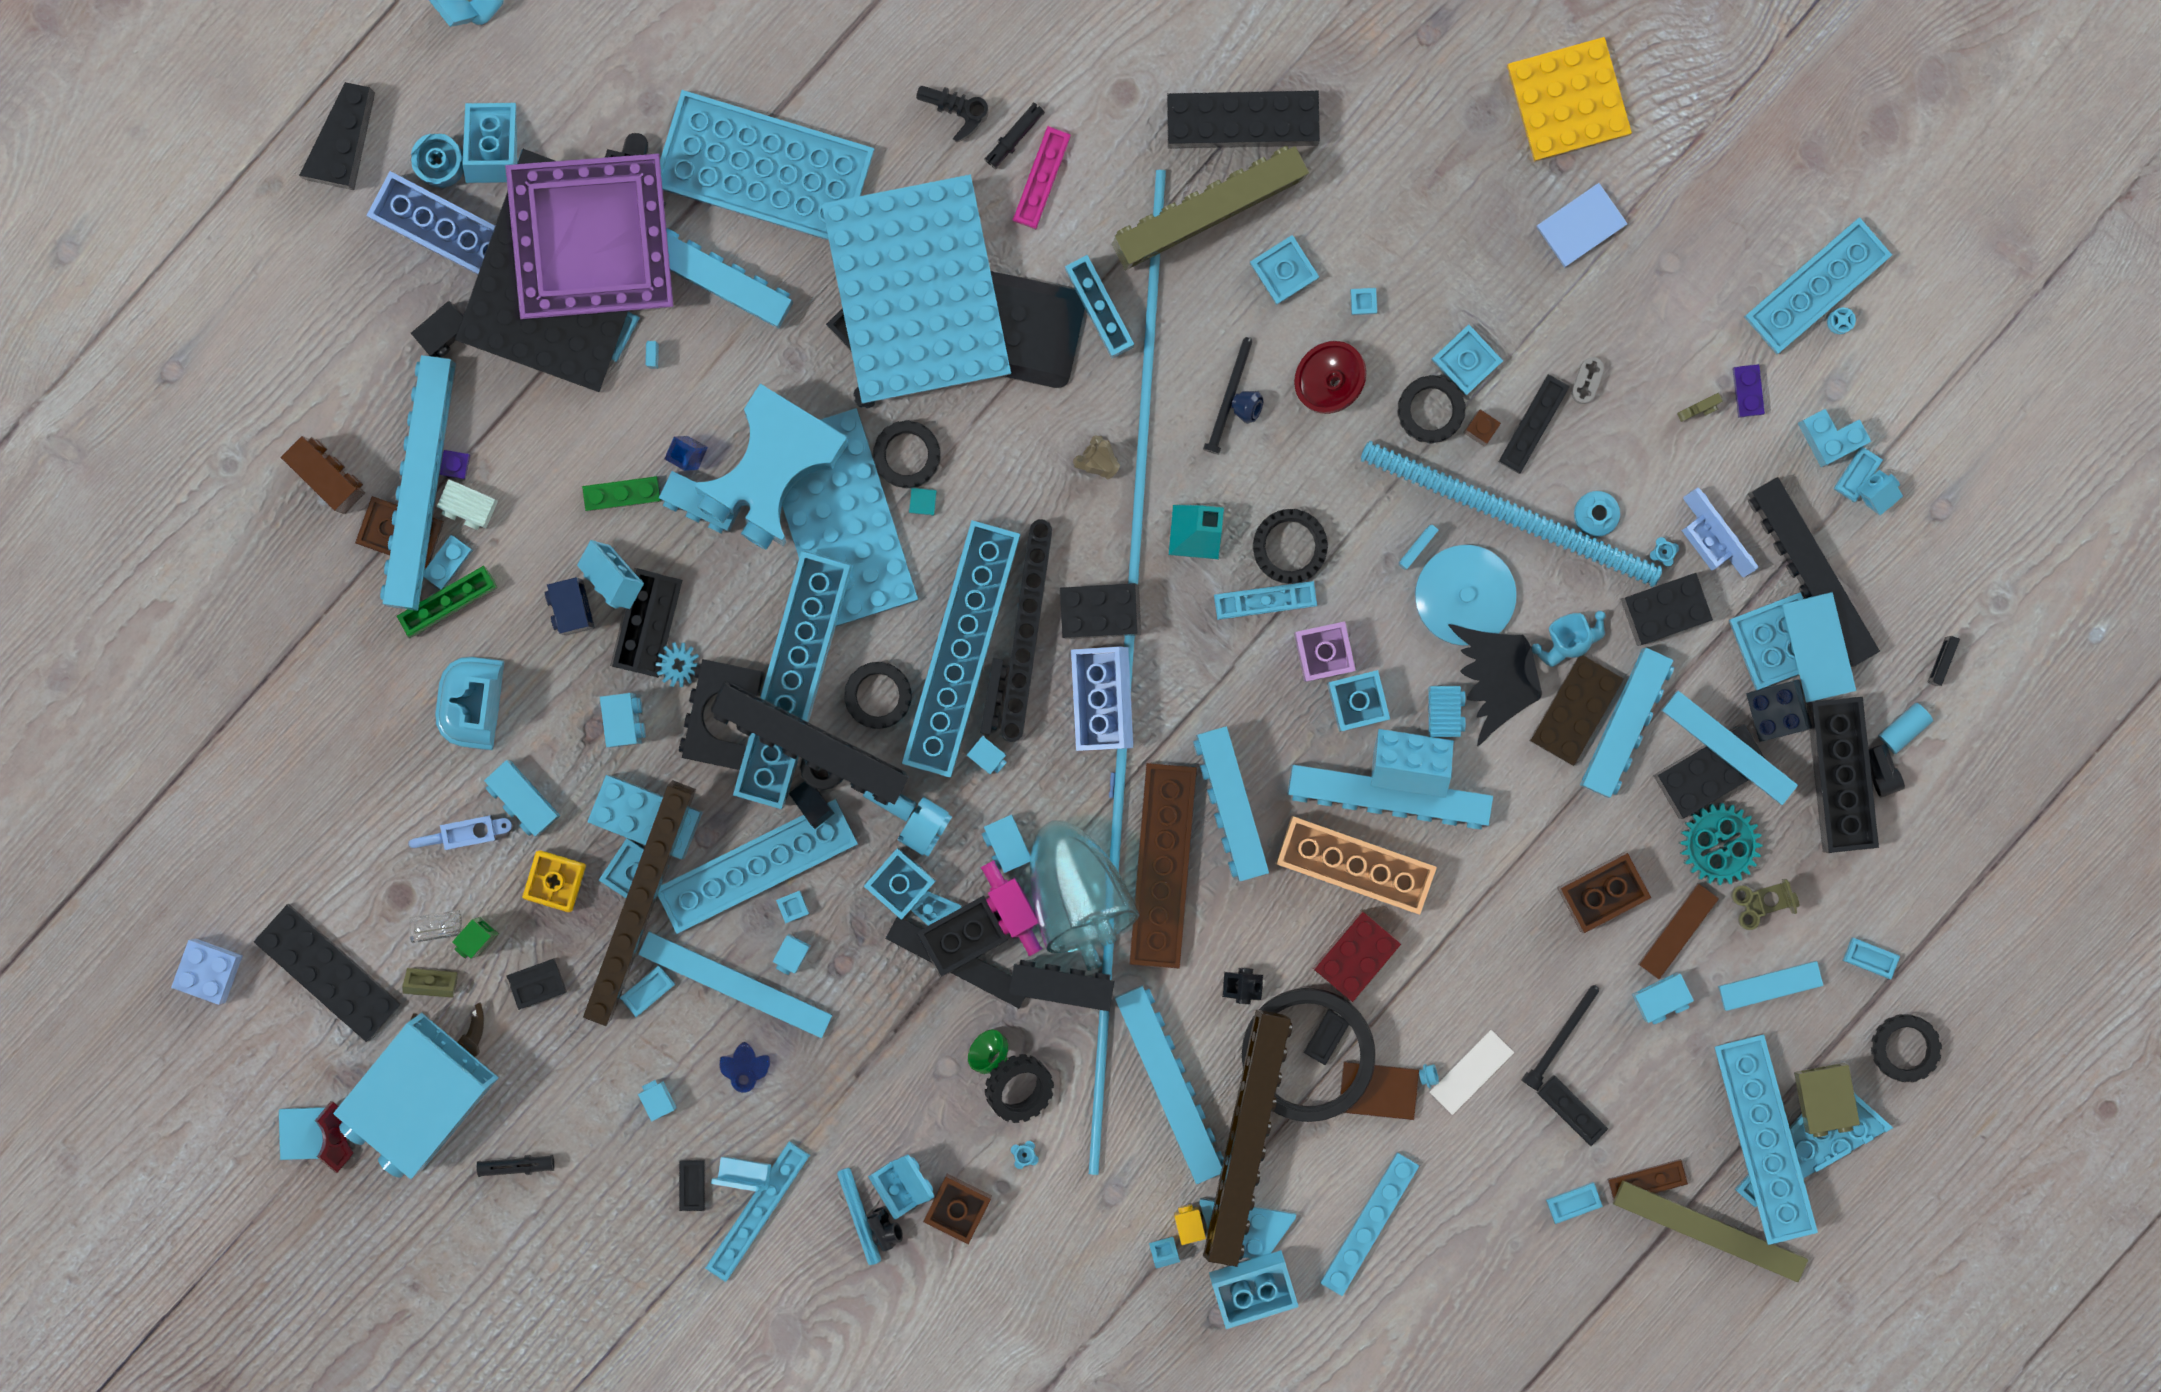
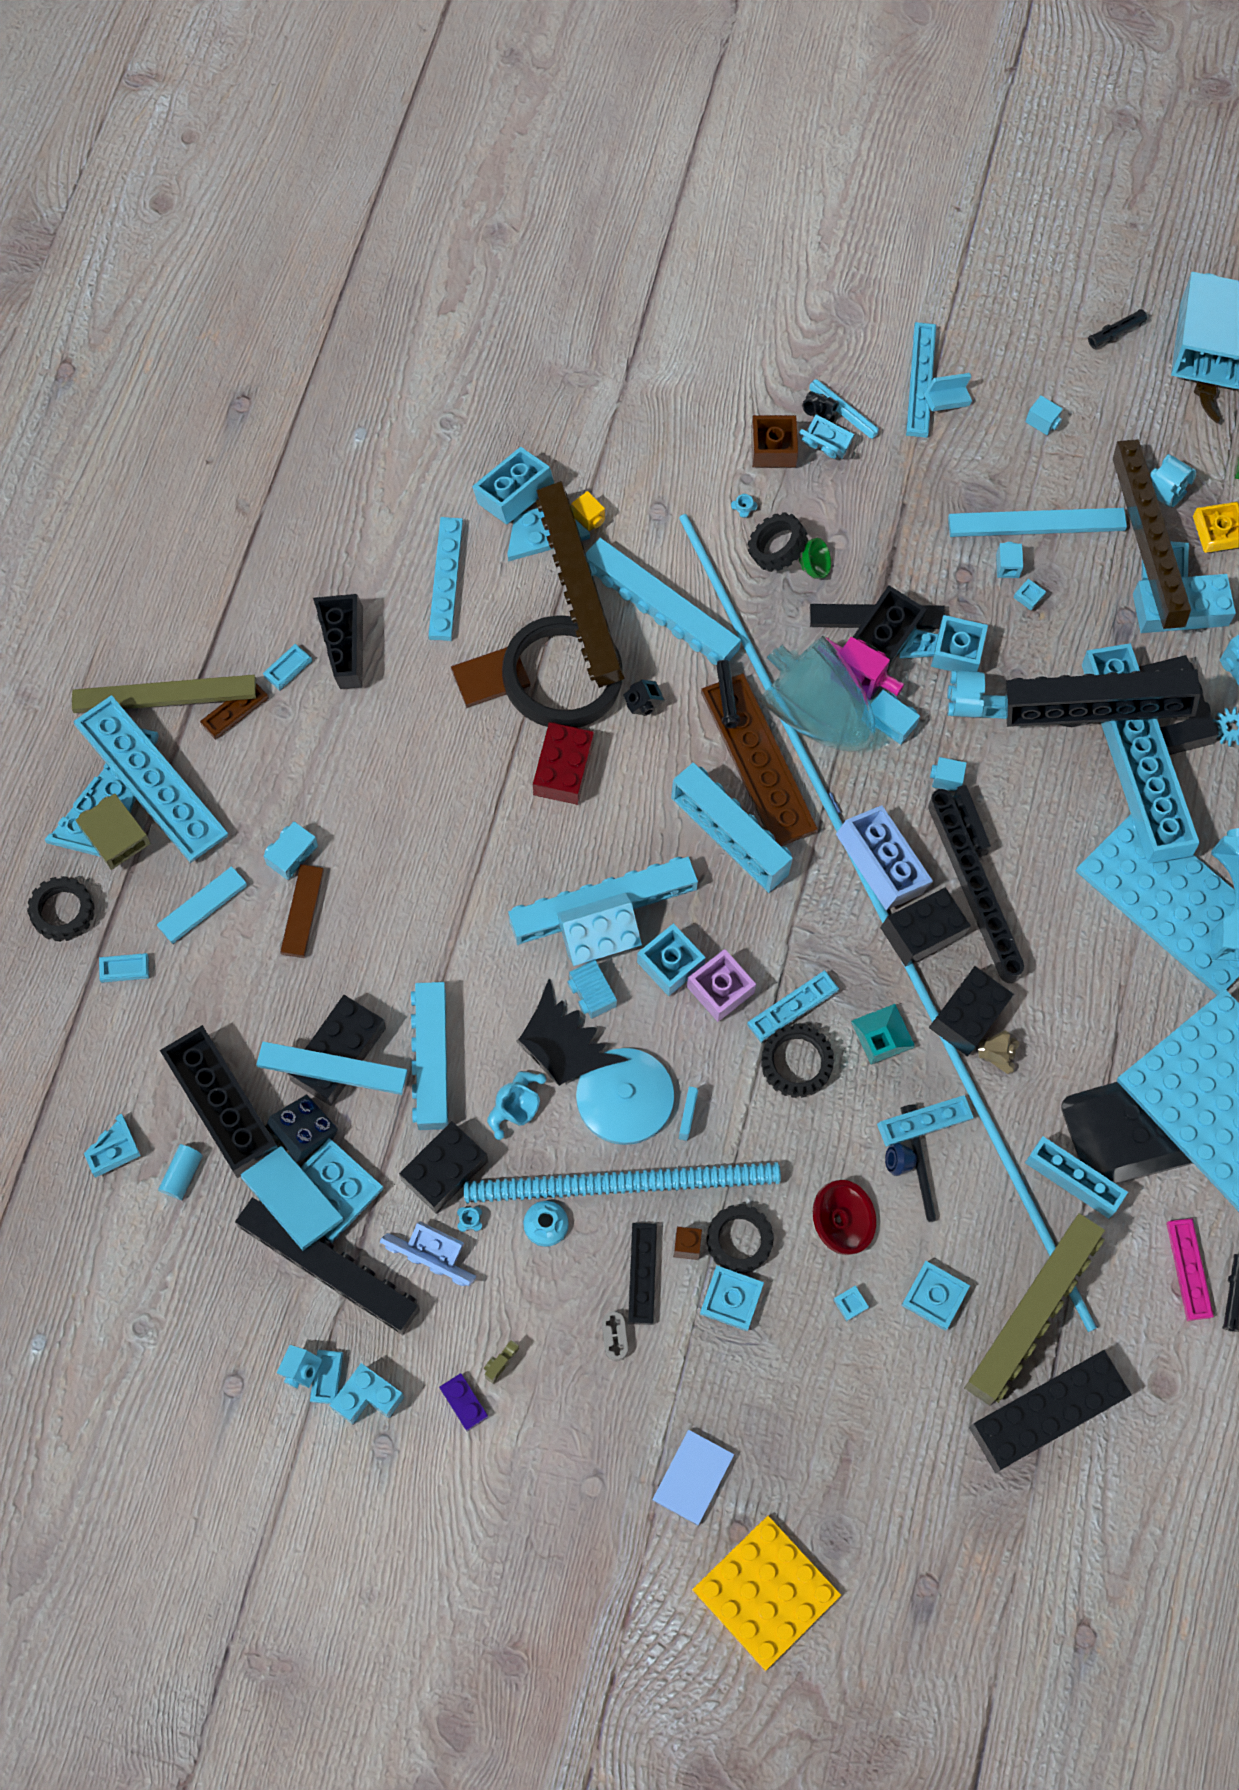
camera: 150 degrees right, 20 degrees down
(536, 984) = (1187, 448): black plate -> none
(576, 955) = (1172, 480): none -> medium azure brick
(647, 991) = (1099, 488): medium azure tile -> none
(691, 1185) = (982, 376): black tile -> none
(744, 1063) = (993, 471): clear blue plate -> none
(754, 868) = (1075, 609): medium azure plate -> none
(811, 804) = (1060, 665): black tile -> none
(856, 679) = (1074, 761): black tyre -> none
(906, 427) = (1168, 957): black tyre -> none
(922, 501) = (1120, 947): teal tile -> none
(961, 648) = (1020, 844): medium azure brick -> none
(1062, 987) = (788, 624): black brick -> none
(1104, 508) = (971, 1011): none -> black brick
(1160, 946) = (730, 717): none -> black axle
(1164, 1252) = (597, 484): medium azure plate -> none
(1206, 427) = (925, 1120): none -> medium azure plate
(1326, 1037) = (554, 691): black tile -> none
(1355, 865) = (602, 830): light nougat brick -> none
(1429, 1075) = (455, 704): medium azure plate -> none
(1472, 1072) = (421, 726): white sticker -> none
(1507, 1202) = (343, 634): none -> black wedge
(1535, 1076) = (367, 742): black piece -> none
(1572, 1110) = (323, 733): black tile -> none
(1576, 710) = (479, 1048): dark brown plate -> none
(1604, 892) = (382, 906): reddish brown brick -> none
(1730, 864) = (282, 984): teal gear -> none
(1755, 904) = (244, 961): olive piece -> none
(1818, 285) = (446, 1534): medium azure plate -> none
(1845, 317) = (405, 1508): medium azure wheel -> none
(1885, 776) = (179, 1121): black piece -> none
(1943, 660) = (172, 1246): black tile -> none
(1957, 781) = (112, 1148): none -> medium azure wing

